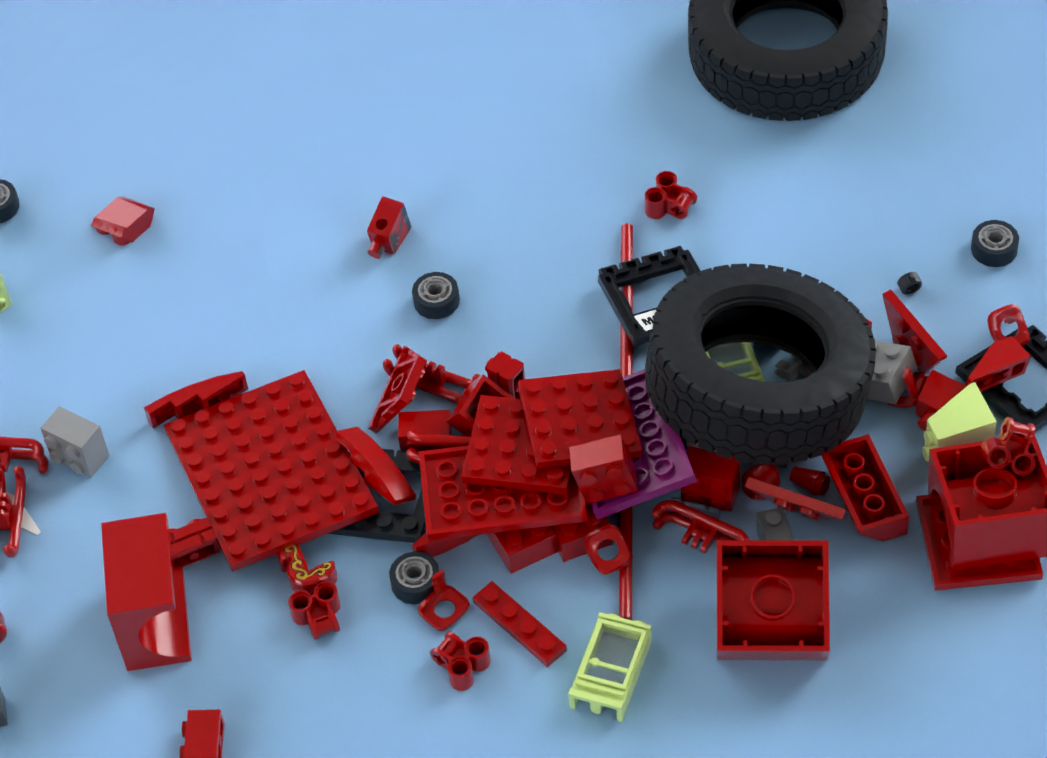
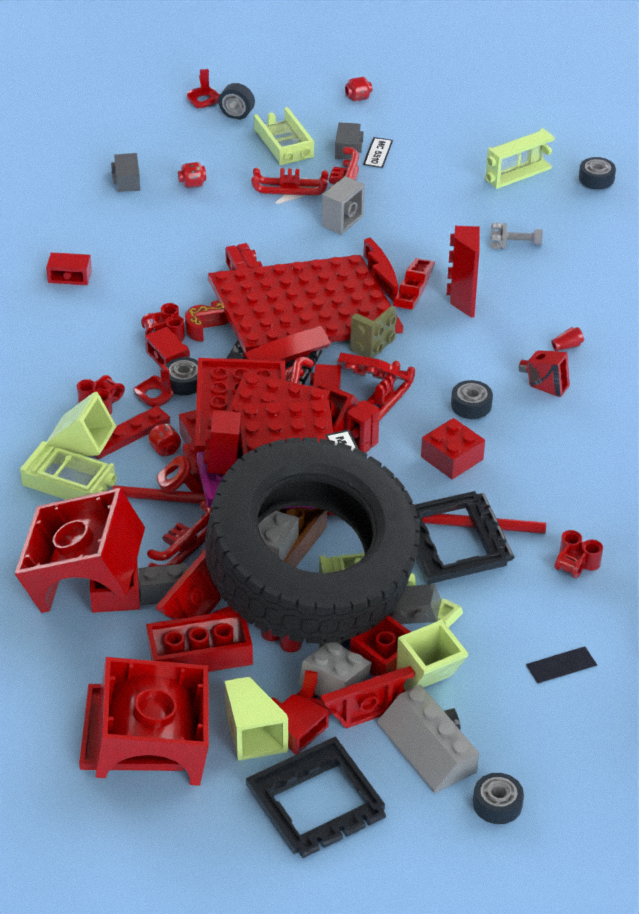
camera: 90 degrees right, 10 degrees down
(124, 220) = (576, 238): slope -> none
(124, 254) = (535, 237): none -> light grey bar
(145, 593) = (183, 222): red piece -> none
(209, 363) = (413, 285): none -> red slope
(239, 290) = (464, 268): none -> red slope
(319, 217) = (570, 338): none -> red cone
(338, 383) = (370, 336): none -> olive bracket
(369, 600) = (165, 346): none -> red brick
(521, 305) = (452, 448): none -> red brick
(539, 575) = (164, 439): none -> red head
(548, 655) = (84, 428): none -> yellowish green slope
(810, 210) = (561, 664): none -> black sticker
(864, 278) = (431, 653): none -> yellowish green slope
(946, 292) = (429, 739): none -> light grey slope
(999, 364) = (320, 754): red slope -> none
(1010, 314) = (382, 782): red piece -> none
(1014, 443) = (185, 715): red piece -> none

